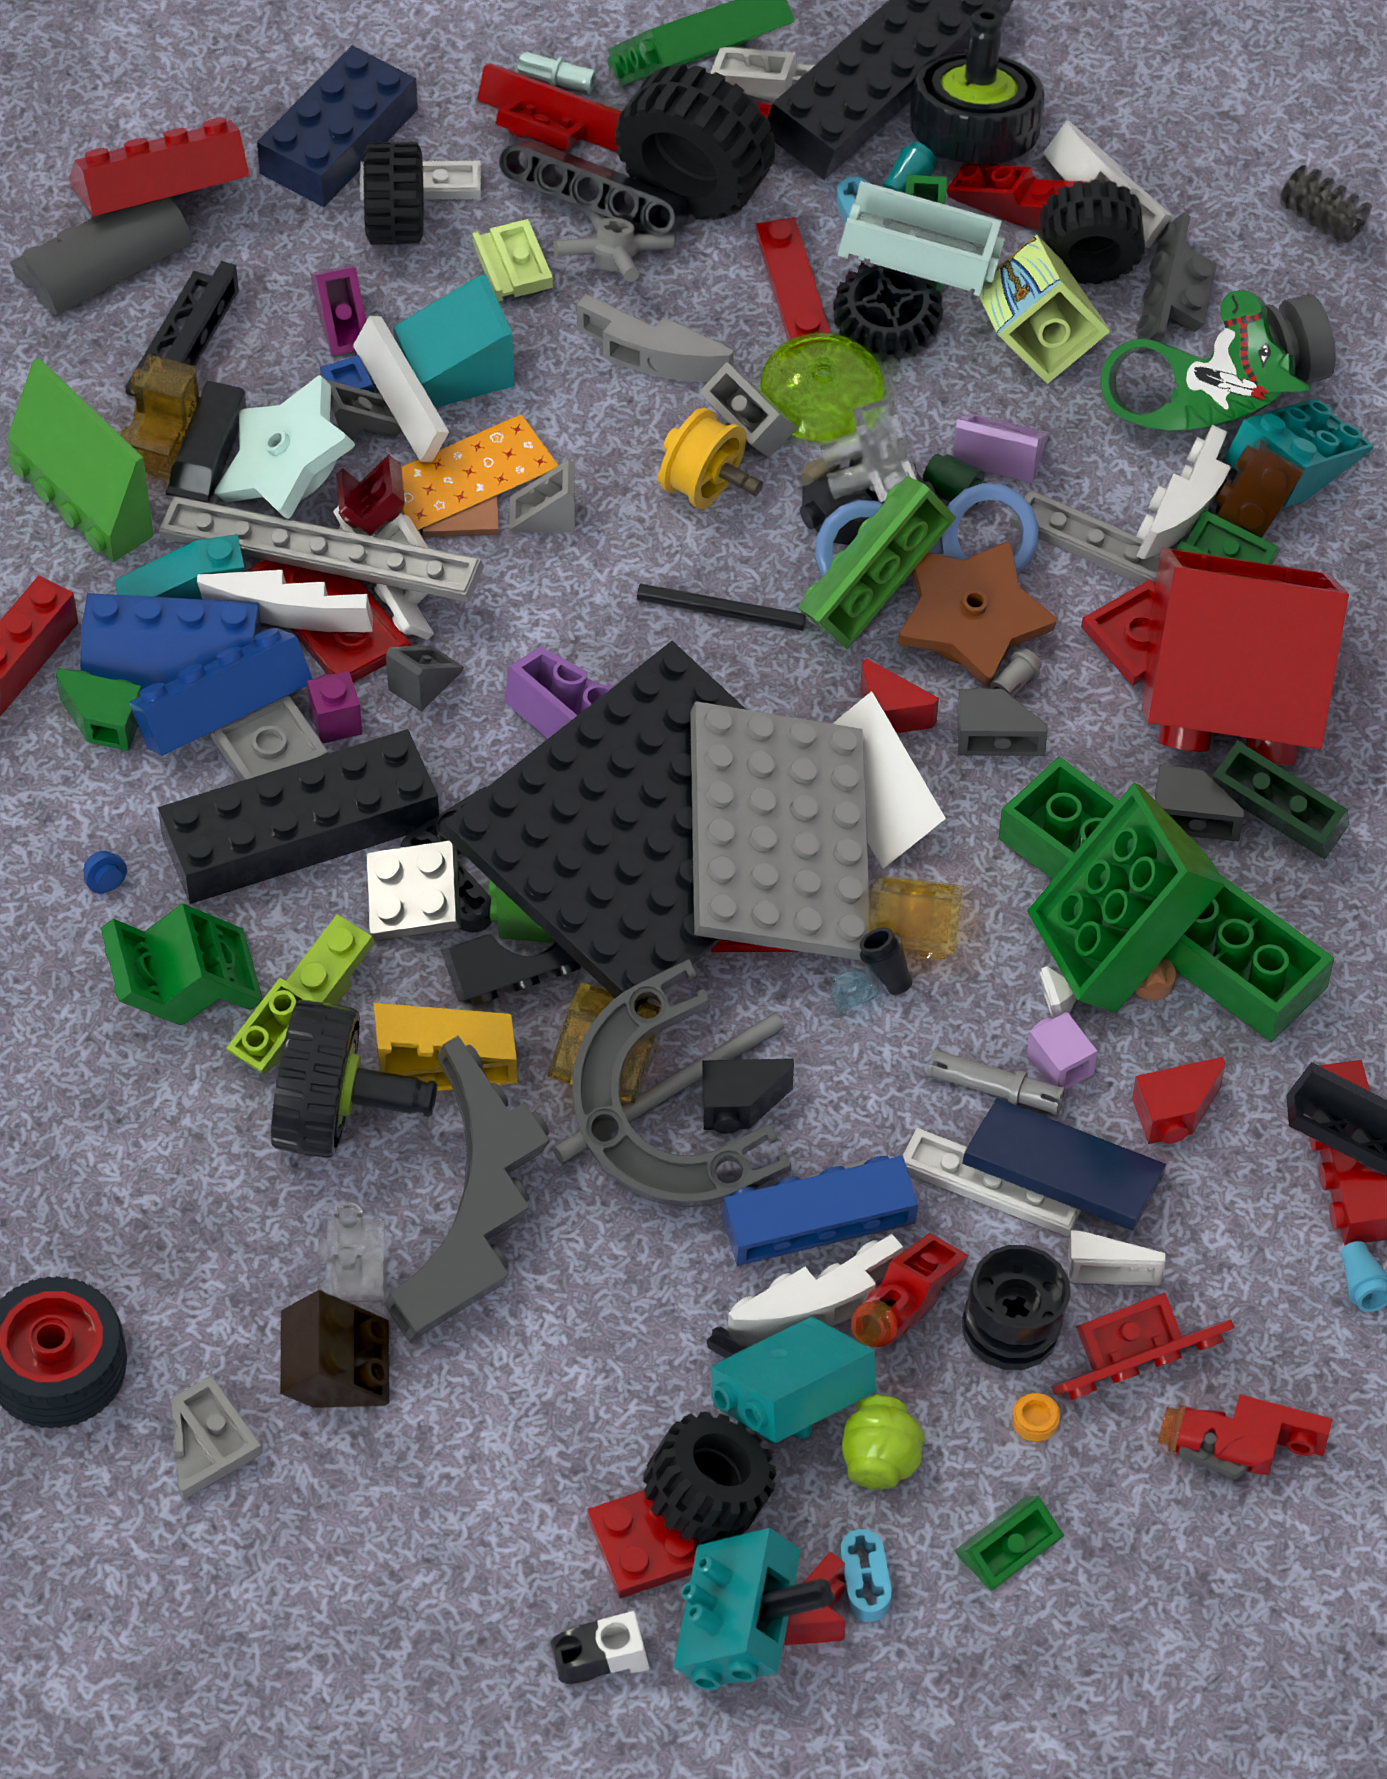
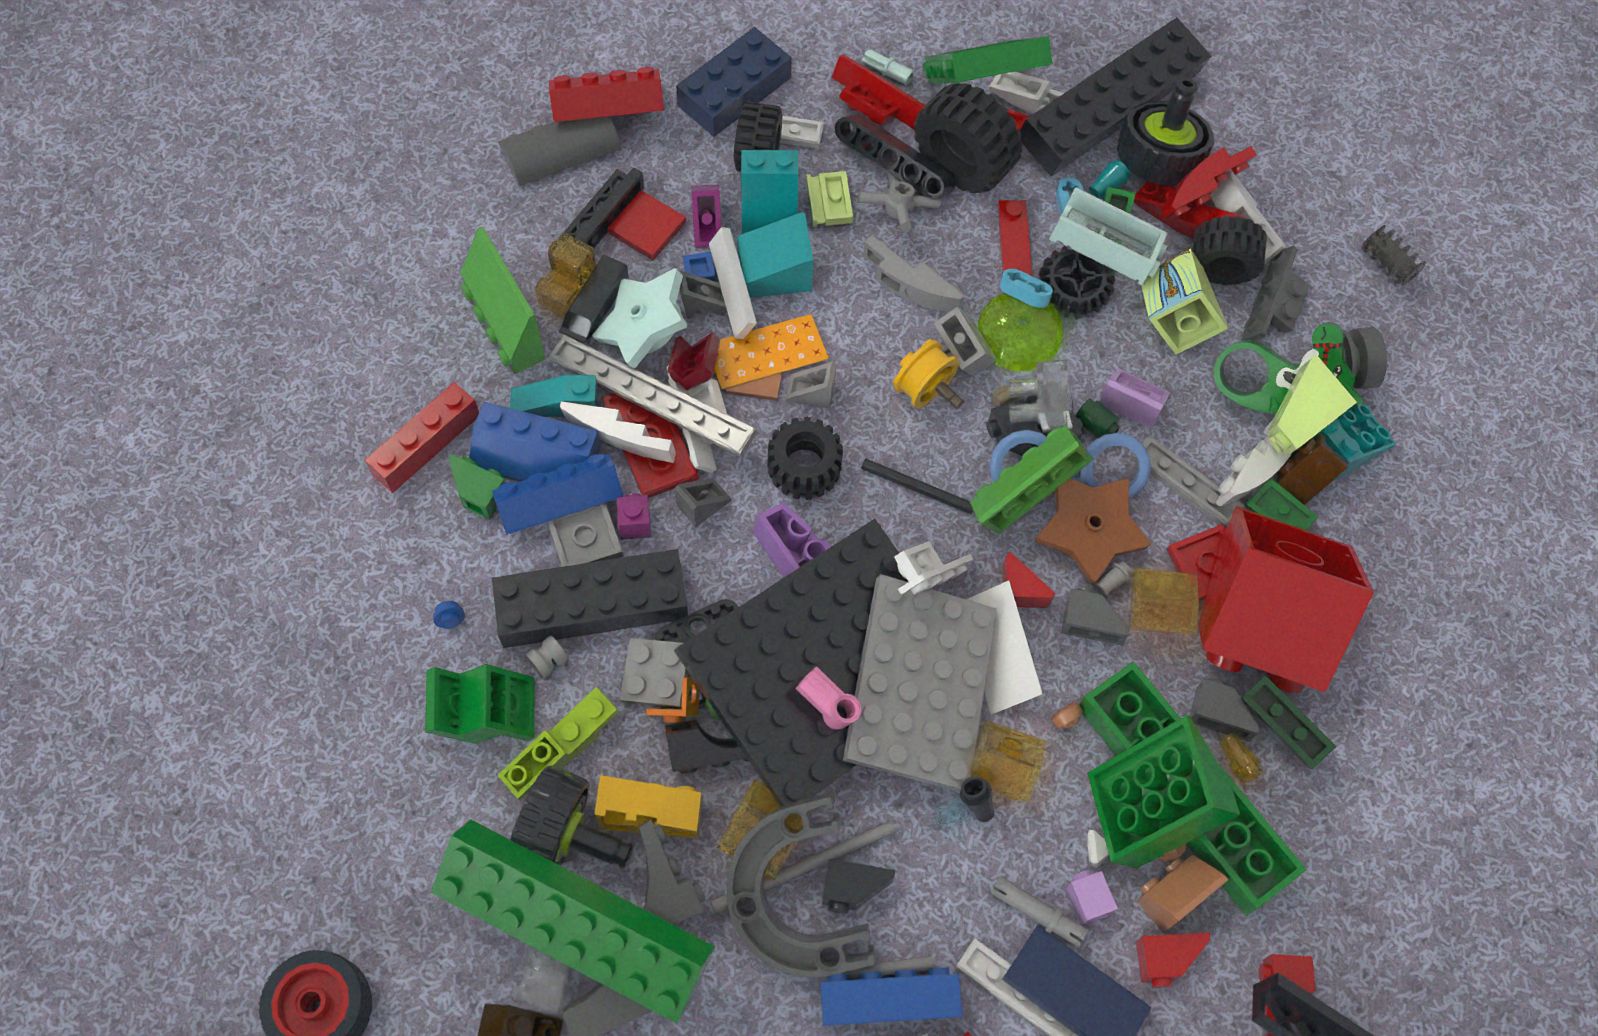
camera: 10 degrees right, 10 degrees up
(256, 337) = (647, 225): none -> red tile
(256, 898) = (547, 657): none -> light grey wheel
(381, 1161) = (572, 920): none -> green brick
(423, 252) = (768, 187): none -> teal slope
(454, 931) = (689, 708): none -> orange bracket
(556, 620) = (804, 436): none -> black tyre
(672, 864) = (826, 696): none -> bright pink piece
(750, 690) = (924, 568): none -> white bracket
(818, 326) = (1026, 288): none -> medium azure beam
(986, 846) = (1067, 716): none -> nougat tile
(1040, 143) = (1204, 180): none -> red slope
(1088, 689) = (1164, 602): none -> clear yellow slope
(1177, 1021) = (1180, 891): none -> nougat slope
(1230, 858) = (1241, 759): none -> clear yellow cone
(1234, 403) = (1308, 407): none -> yellowish green slope

